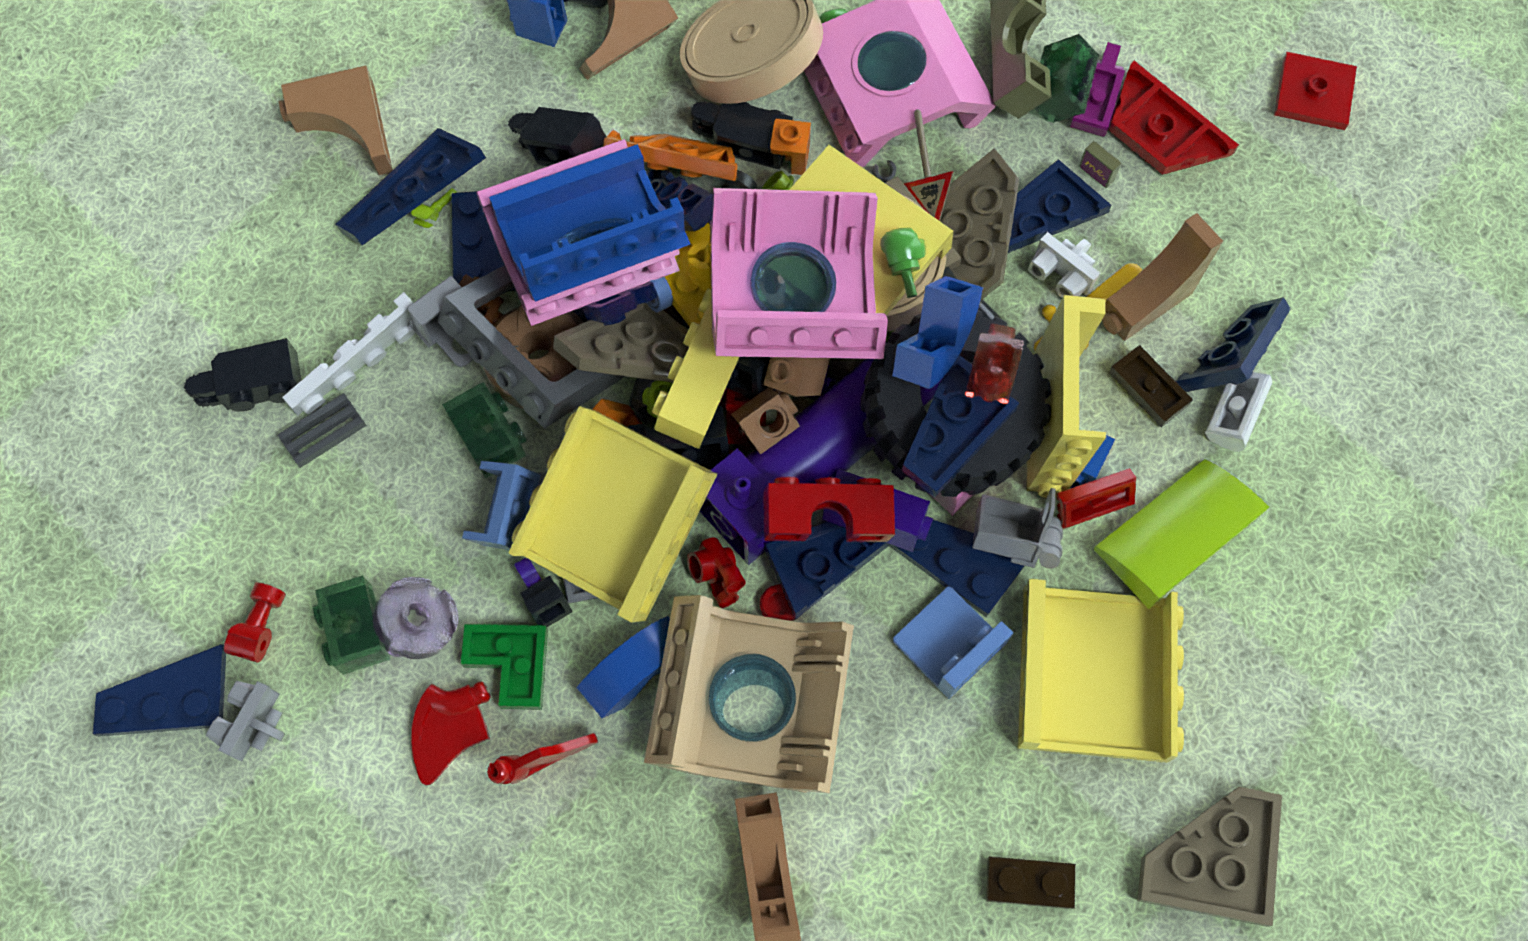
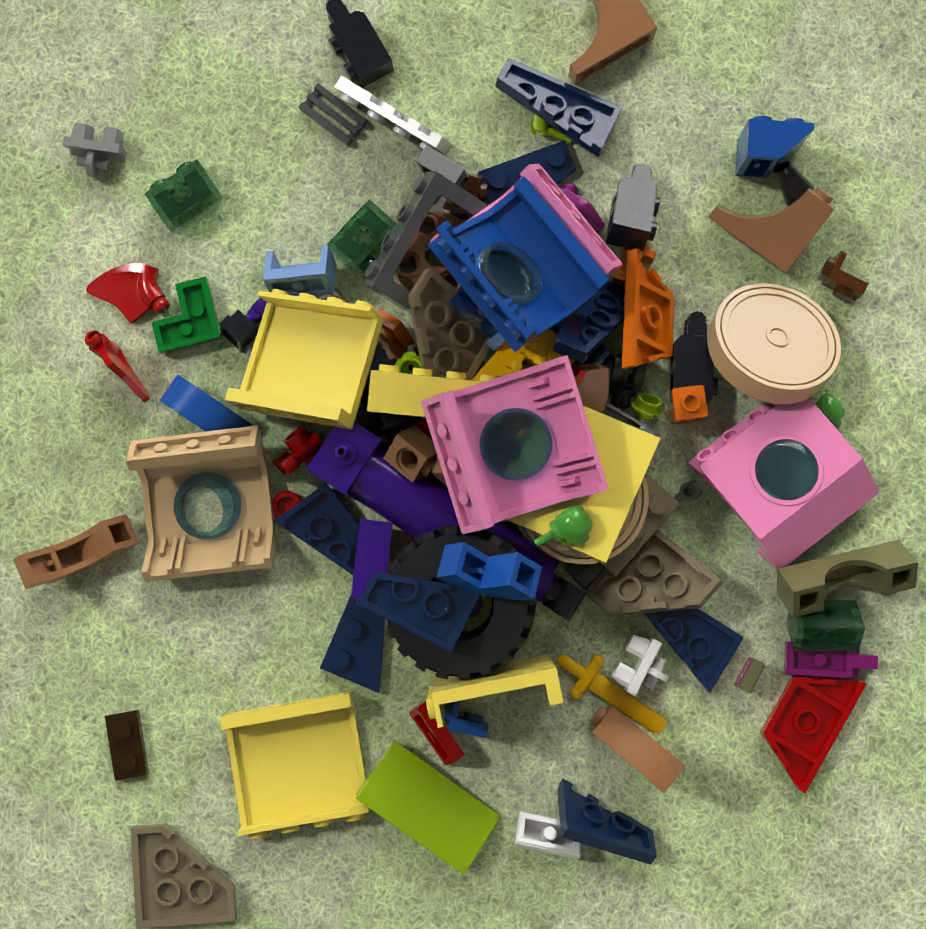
camera: 80 degrees right, 15 degrees up
(166, 699) = (99, 84): dark blue wing -> none
(251, 638) = (156, 126): red leg -> none
(403, 637) = (201, 221): plate -> none
(863, 507) = (339, 495): red arch -> none
(931, 190) = (672, 534): piece -> none
(950, 641) = (289, 645): medium blue bracket -> none
(995, 364) = (460, 625): clear red hips -> none
(1019, 531) = (387, 679): light grey piece -> none
(1150, 386) = (550, 758): dark brown plate -> none
(1315, 91) = (888, 854): red plate -> none

